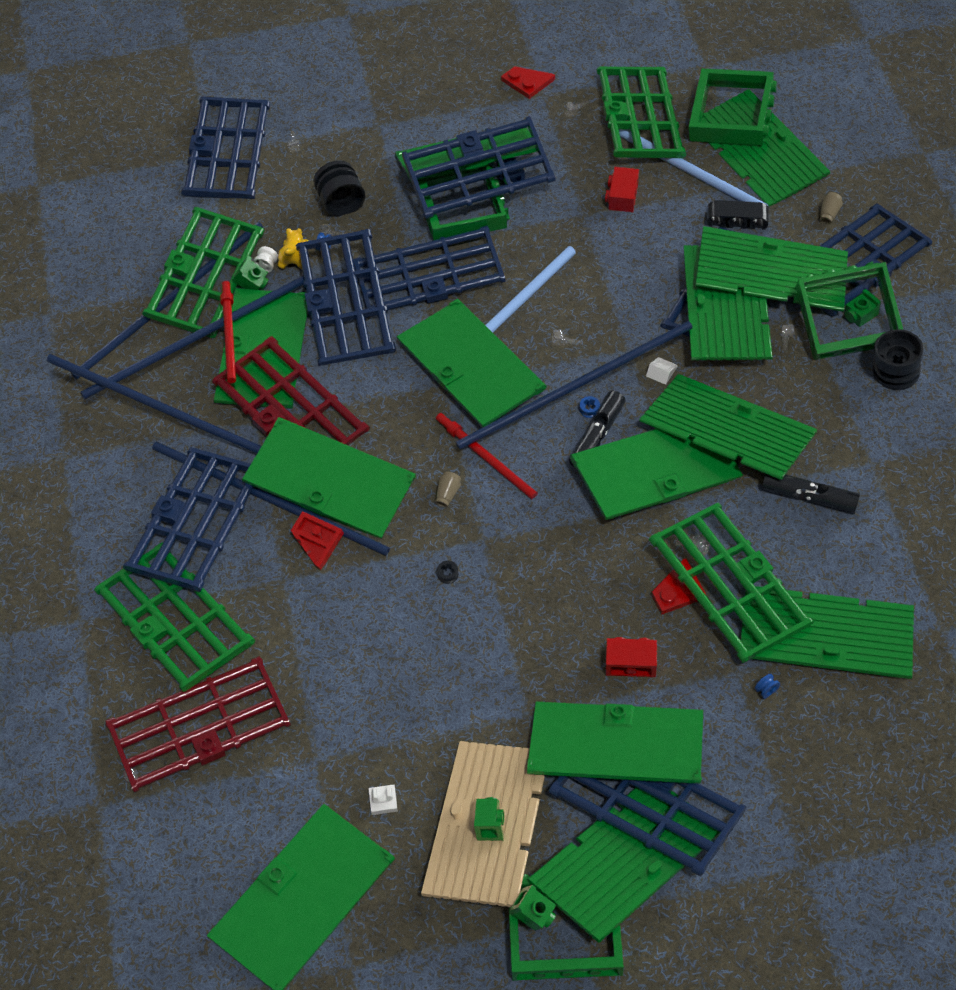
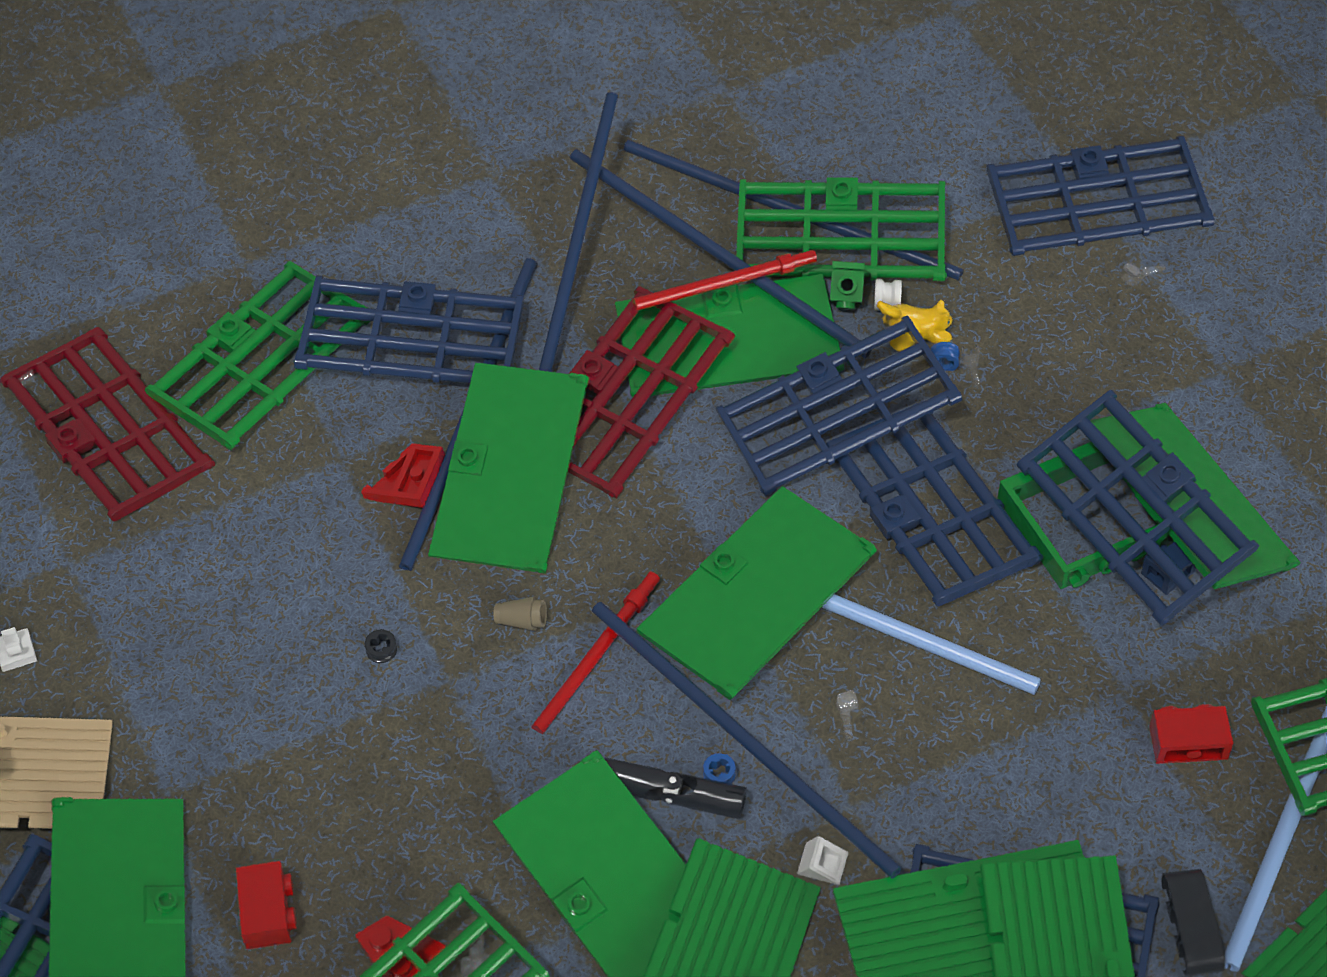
camera: 75 degrees right, 0 degrees up
(339, 188) = (1045, 343): black wheel -> none

